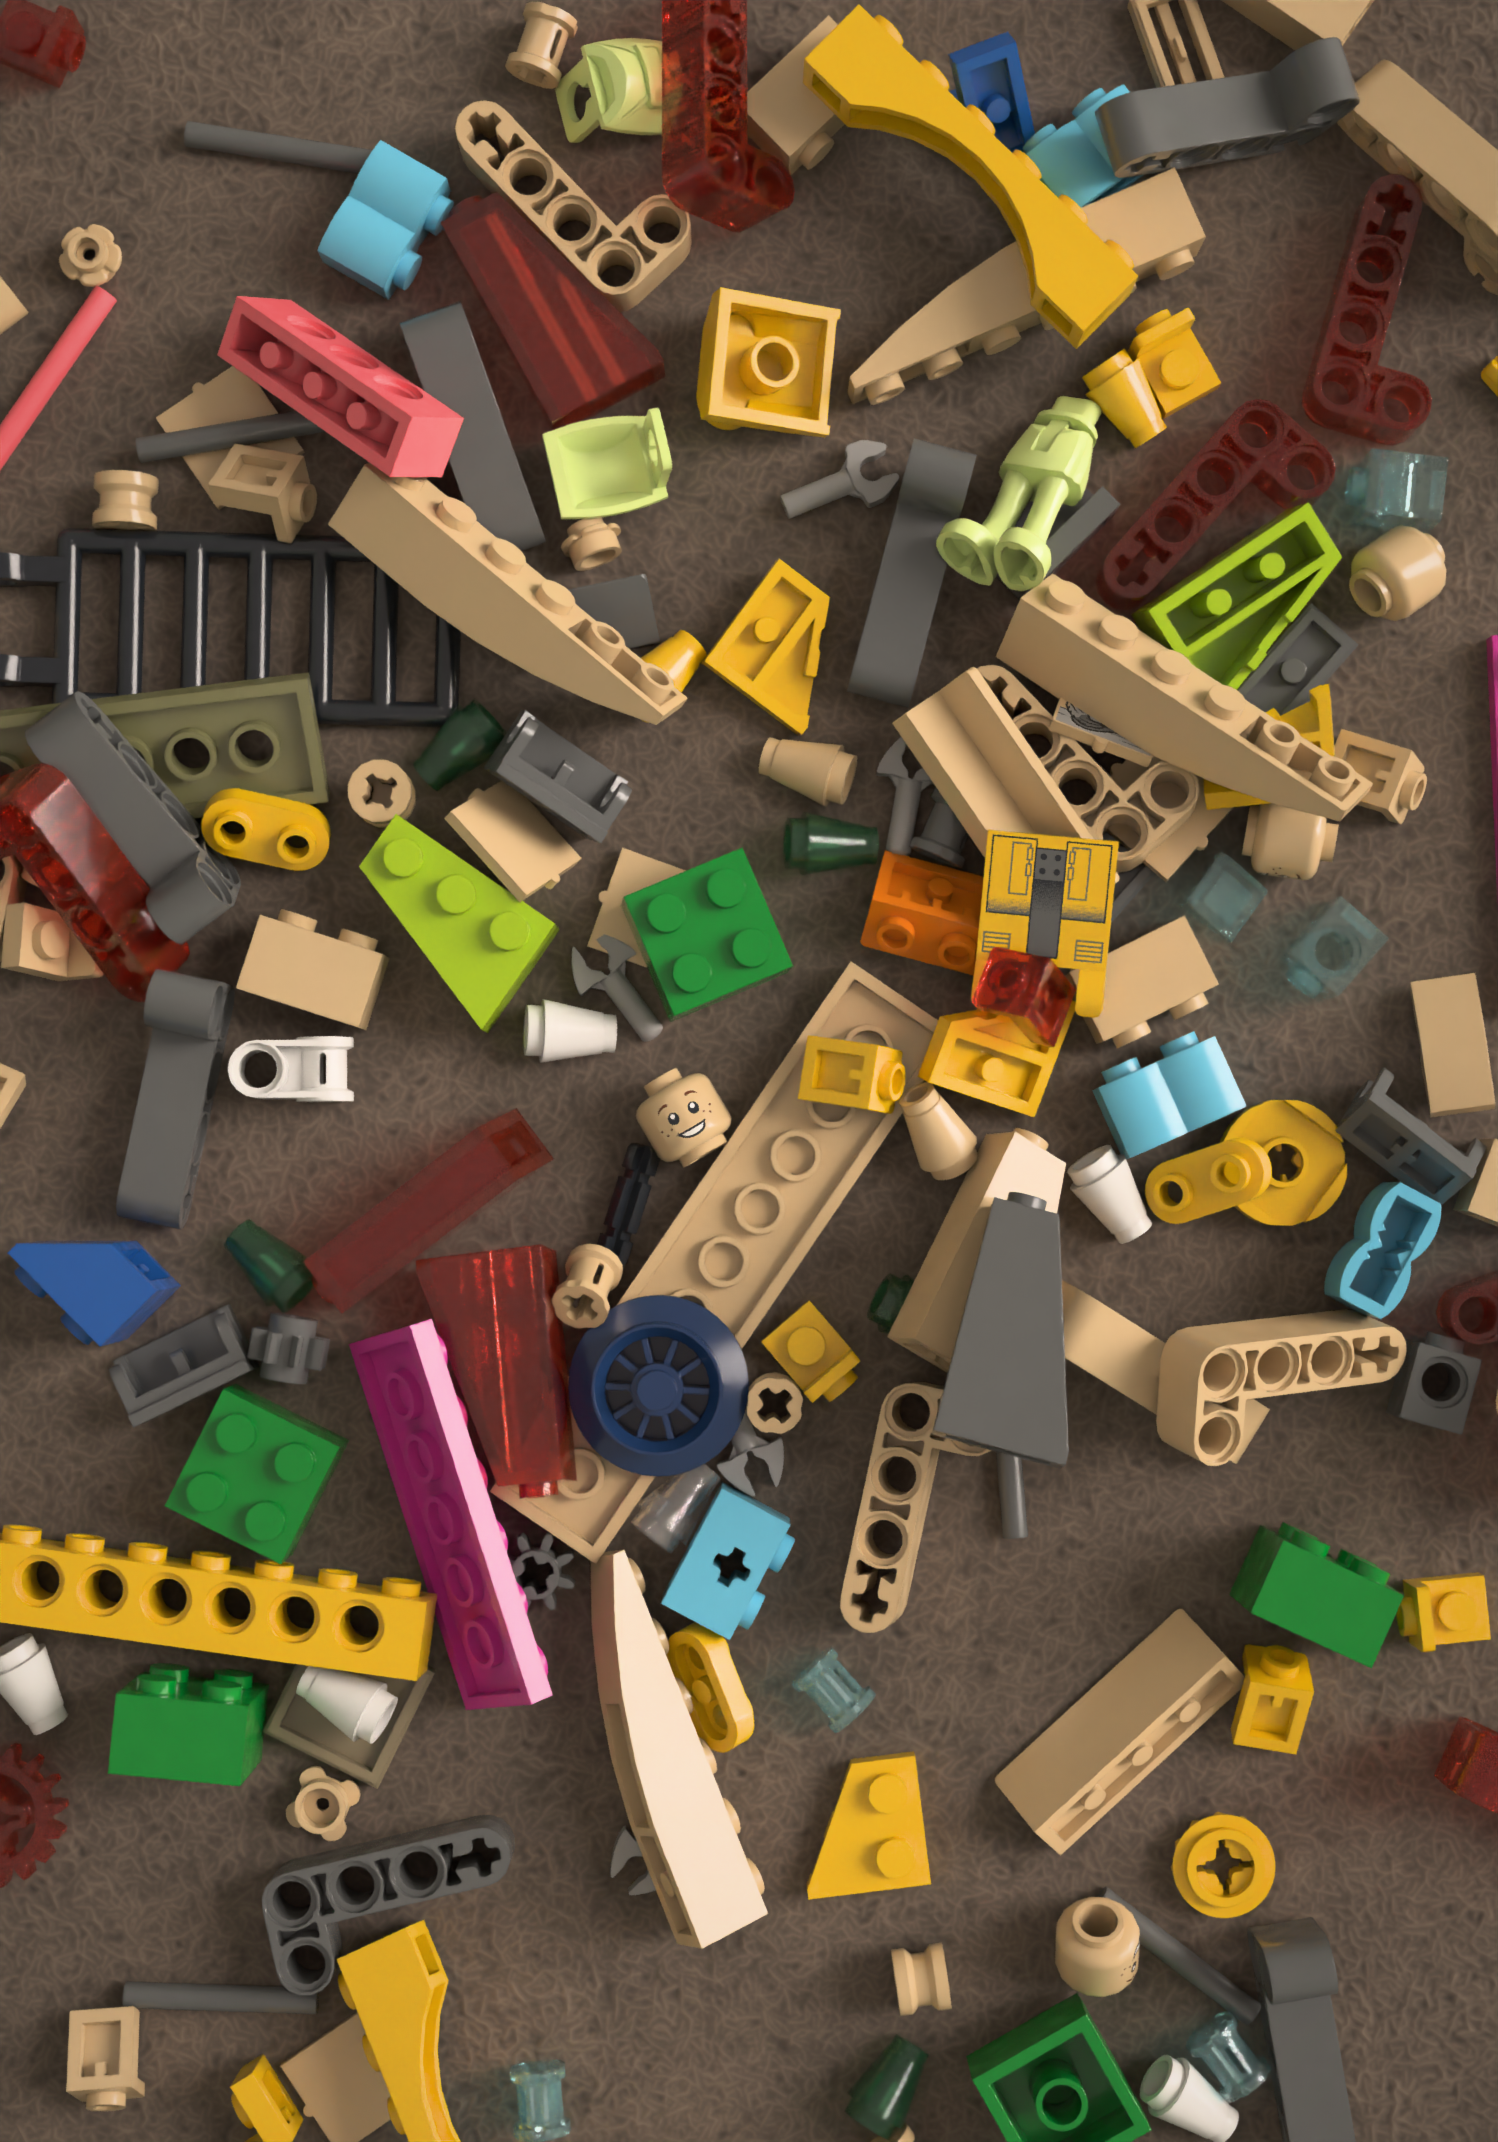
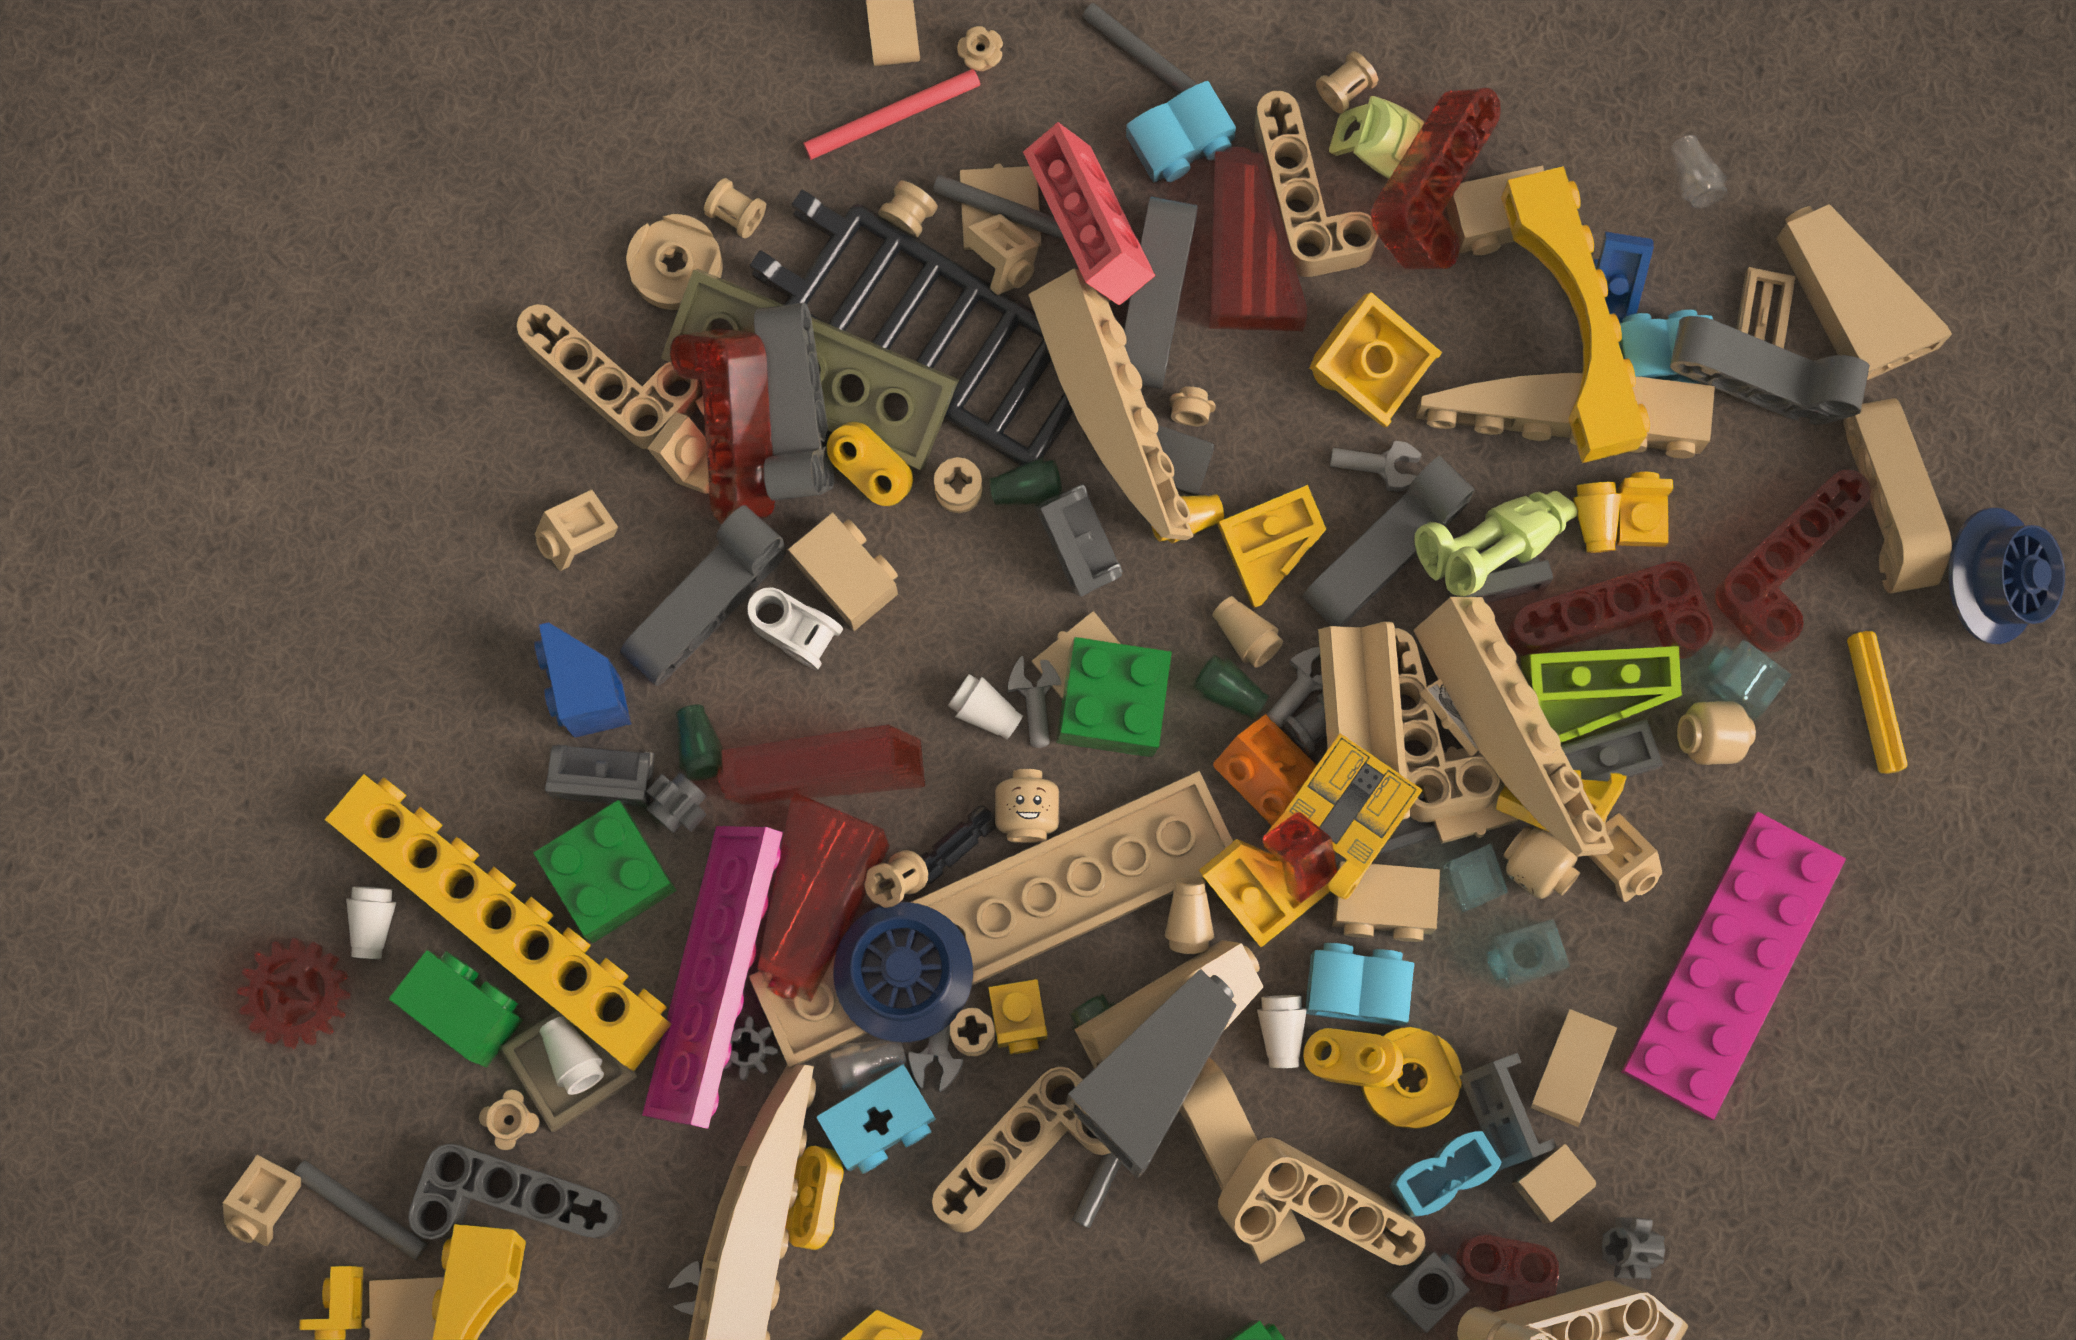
camera: 35 degrees right, 10 degrees down
(459, 919) = (960, 592): lime wedge -> none
(513, 839) = (1025, 562): tan piece -> none
(609, 465) = (1231, 363): yellowish green piece -> none
(833, 1689) = (895, 1250): clear light blue bush -> none
(852, 1074) = (1155, 842): yellow bracket -> none

